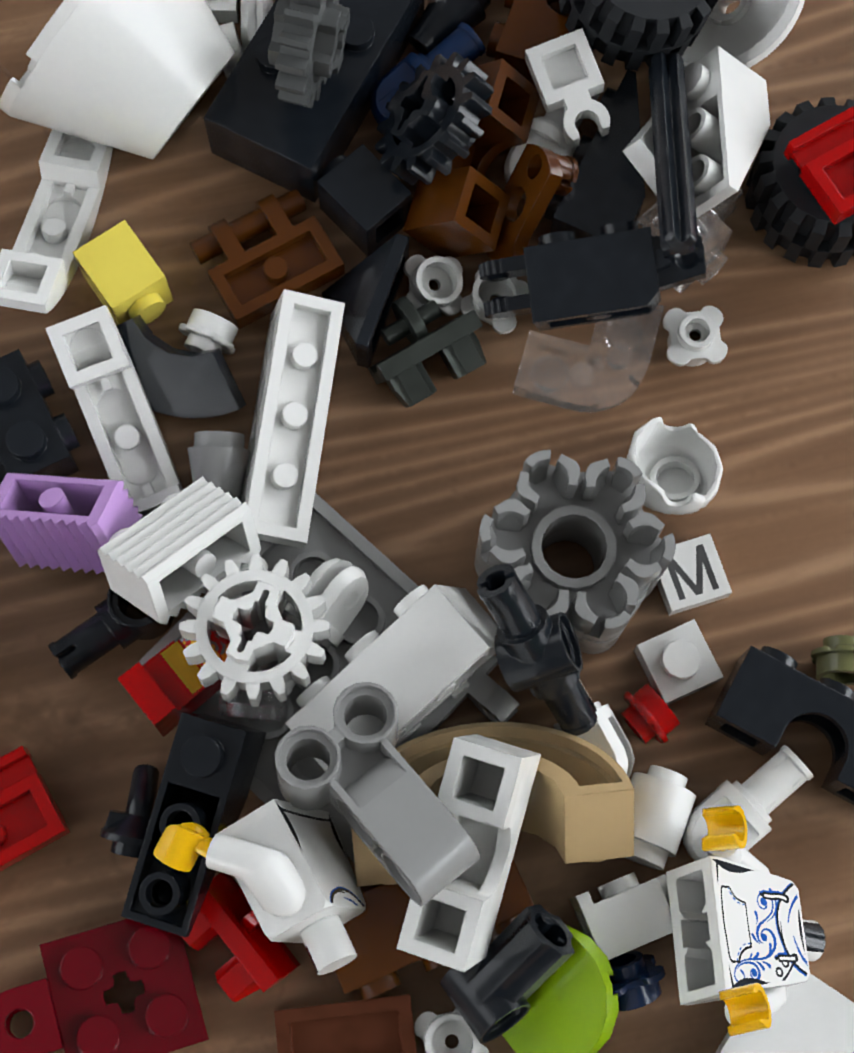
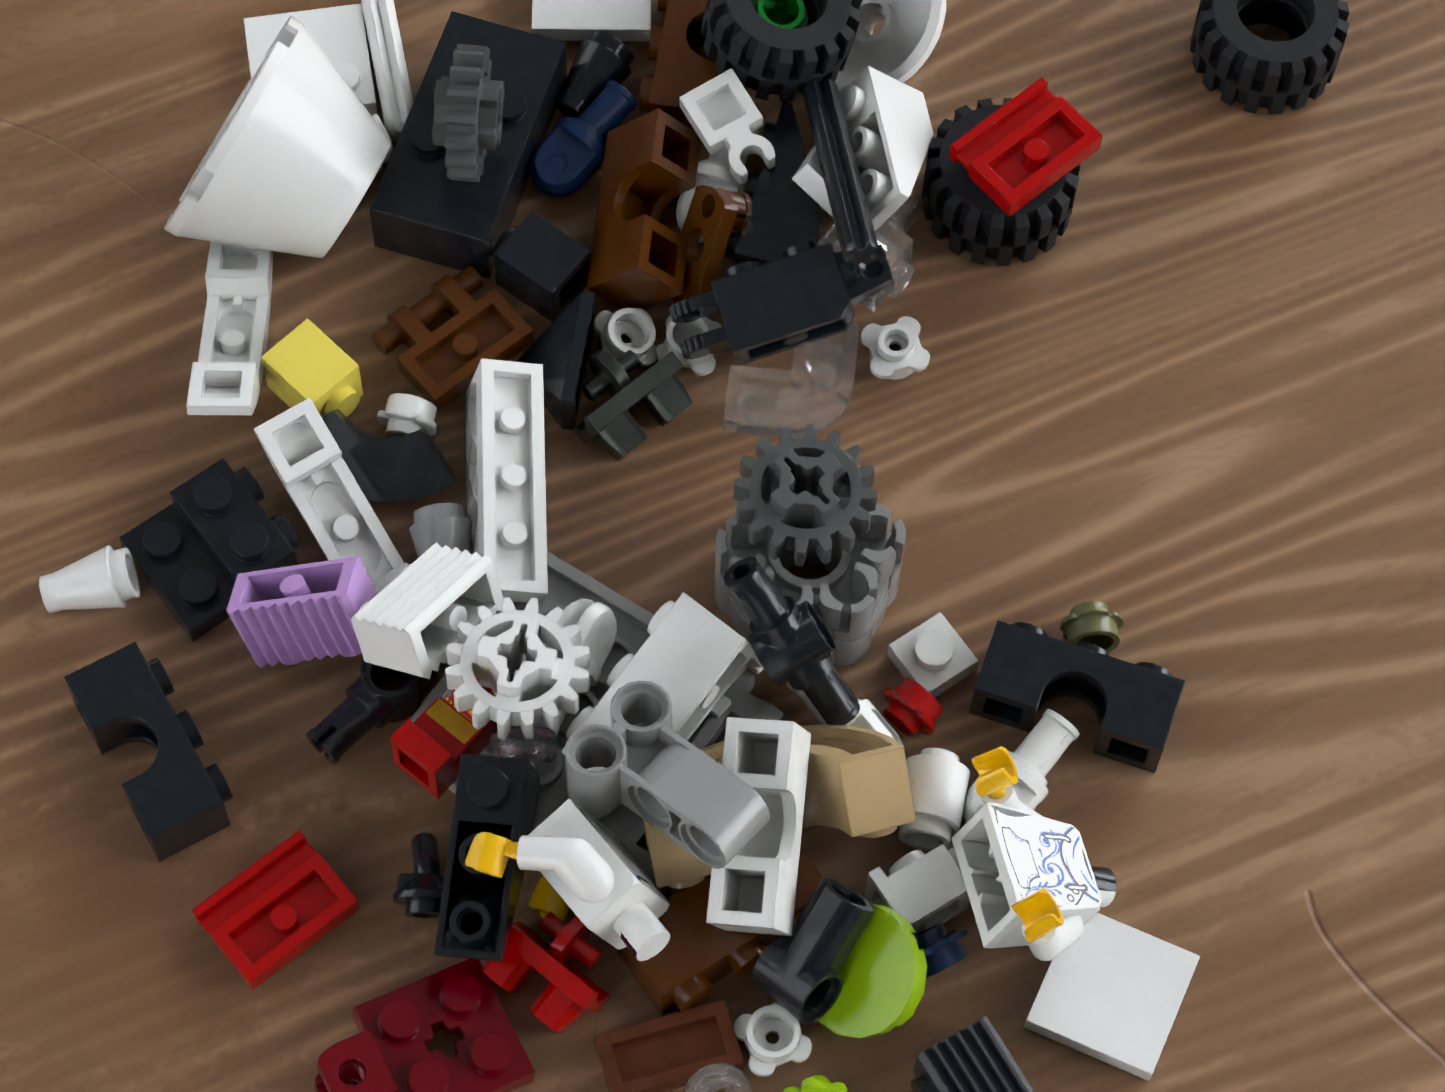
camera: 10 degrees left, 10 degrees down
(434, 119) = (600, 175): black gear -> none
(601, 481) = (801, 520): none -> dark grey gear
(677, 467) = (905, 470): white hair -> none
(693, 576) = (932, 574): white tile -> none

